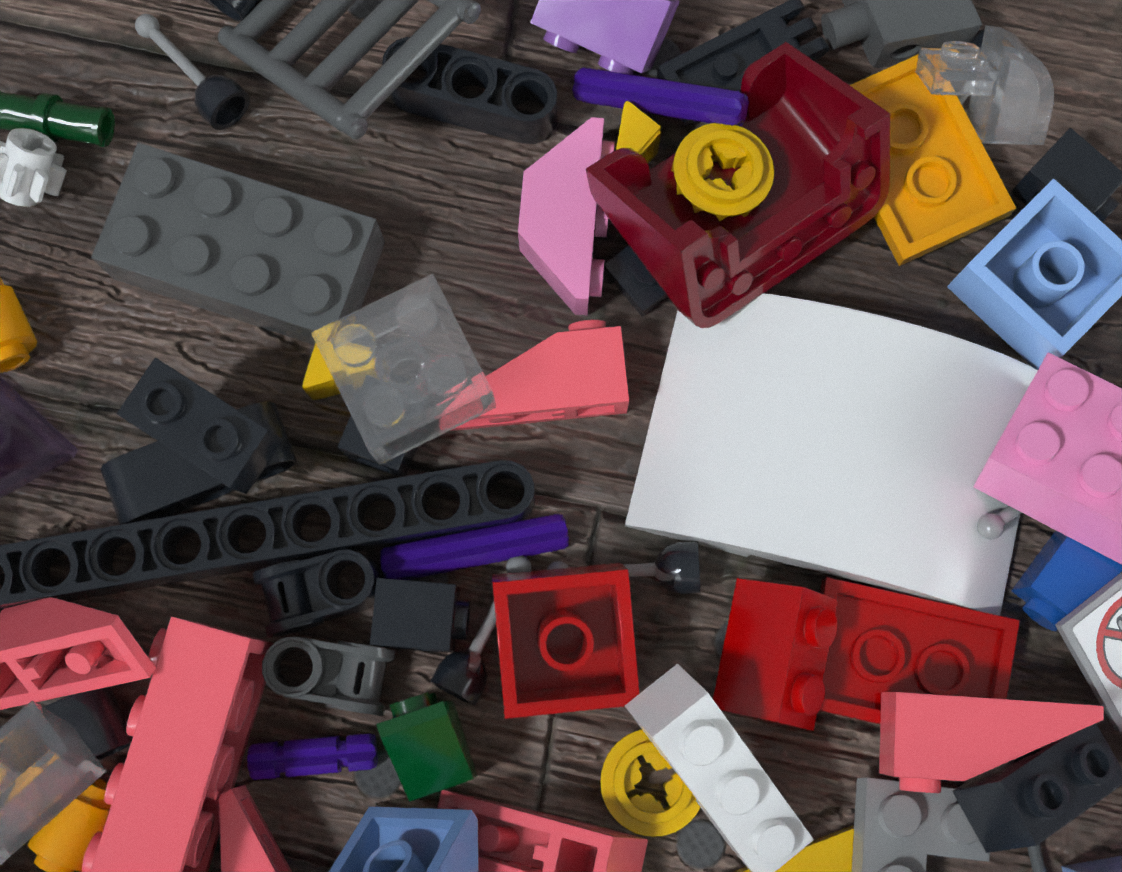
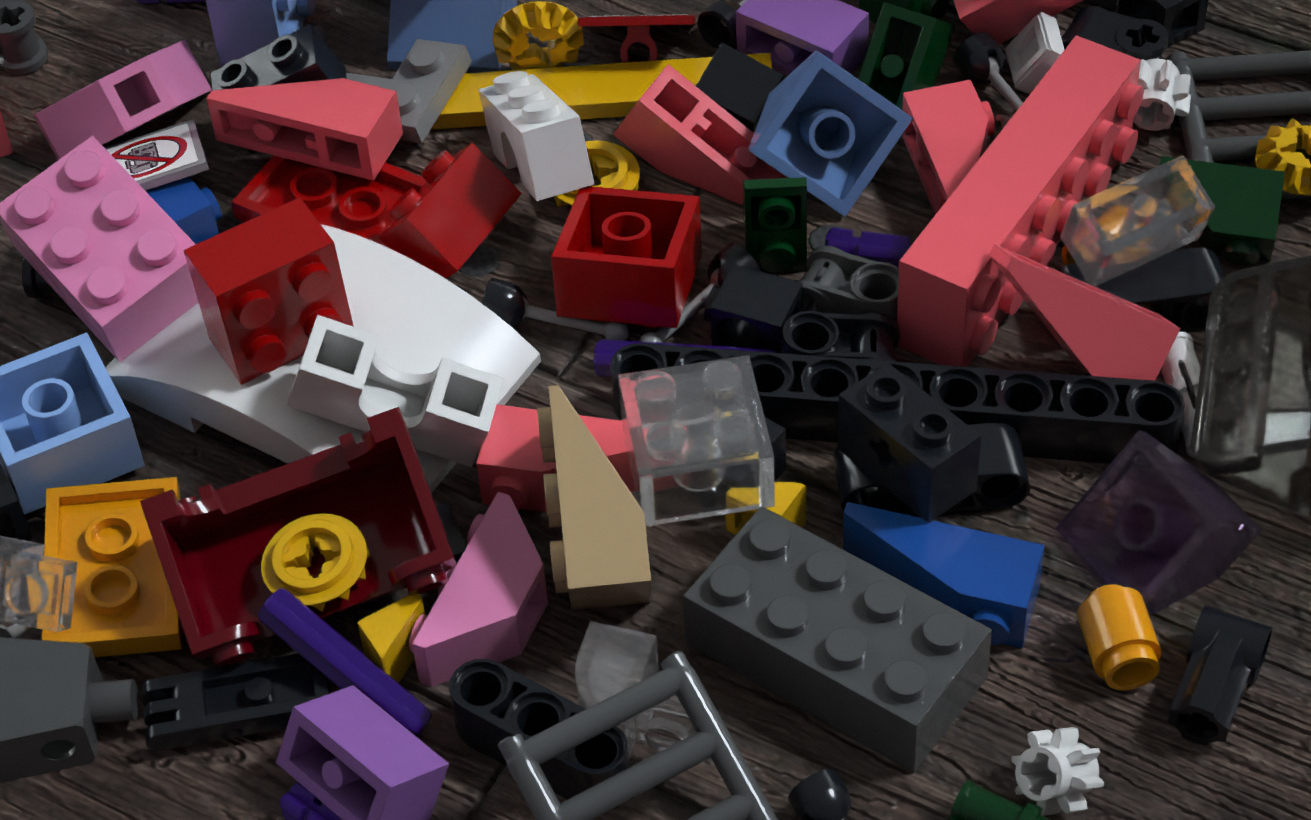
camera: 160 degrees left, 30 degrees down
(117, 339) = (965, 568): none -> blue slope
(417, 143) = (615, 660): none -> clear brick
(480, 265) = (602, 524): none -> tan slope
(675, 366) = (349, 382): none -> white arch
(894, 401) = (266, 287): none -> red brick

